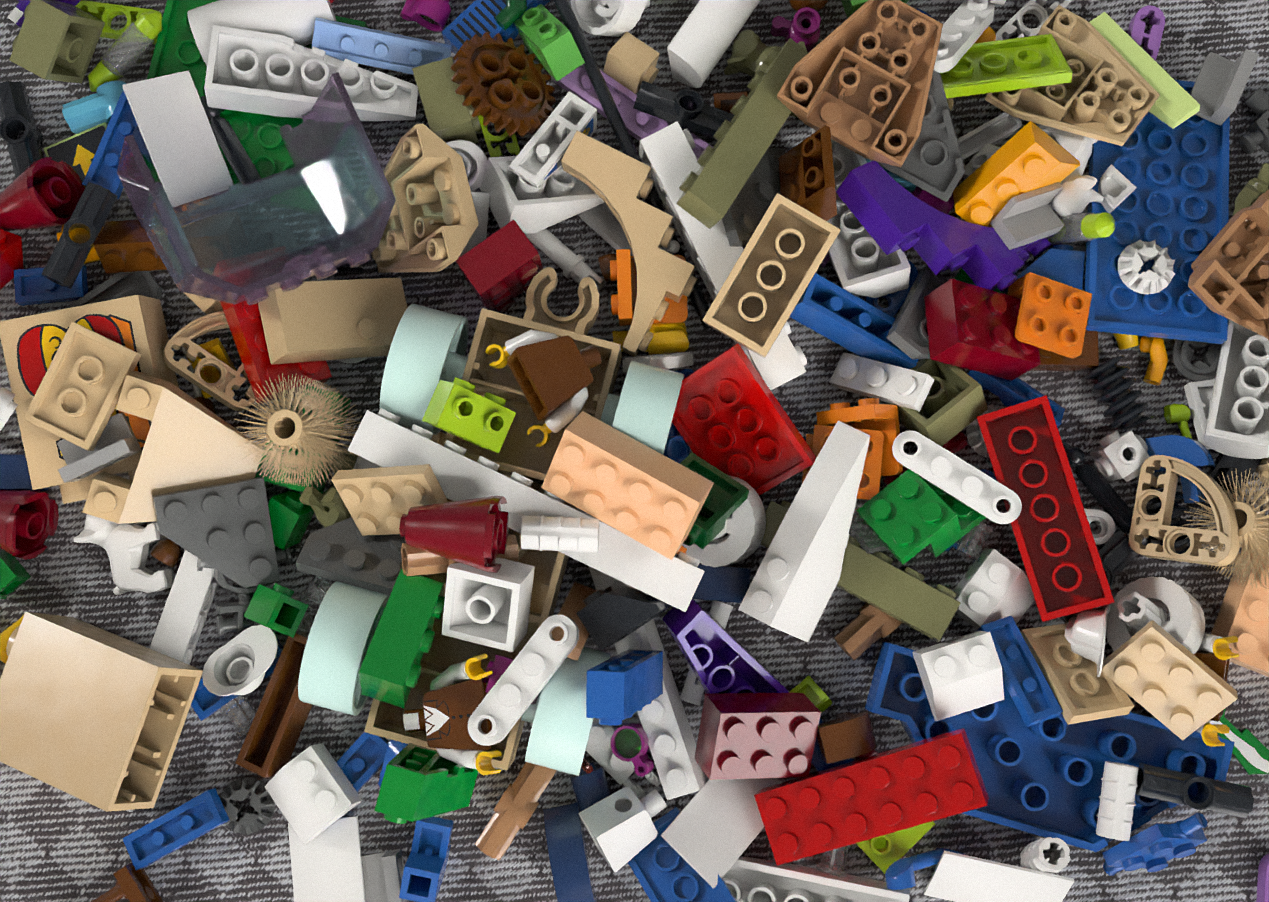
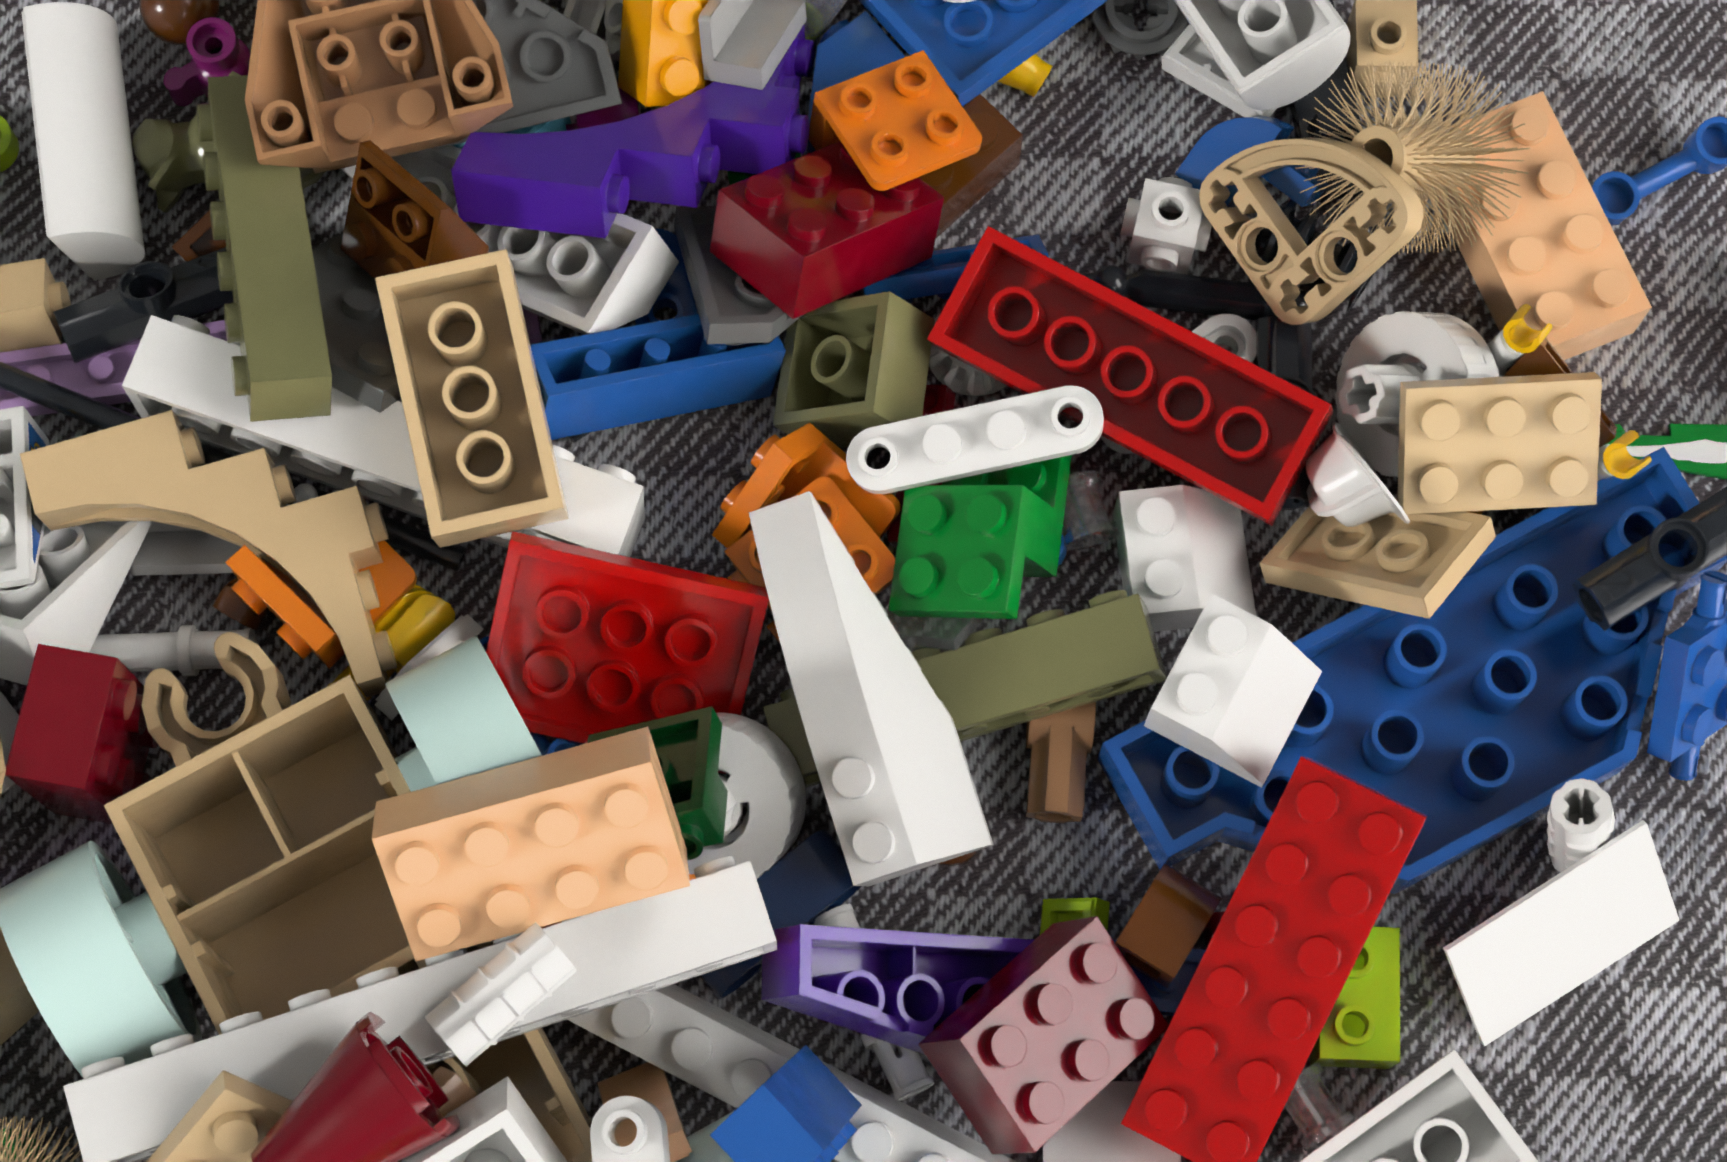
camera: 45 degrees left, 10 degrees down
(469, 415) = (219, 957): lime brick -> none
(550, 375) = (286, 800): reddish brown torso -> none
(618, 613) = (697, 1044): black slope -> none
(882, 381) = (767, 404): white plate -> none
(901, 873) = (1418, 1032): blue bar -> none
(1021, 673) = (1314, 614): blue plate -> none
(1117, 801) = (1592, 660): white axle -> none
(1118, 395) = (1085, 152): black piece -> none
(1158, 359) = (1094, 62): light orange arm -> none
(1178, 413) = (1188, 108): lime hand -> none

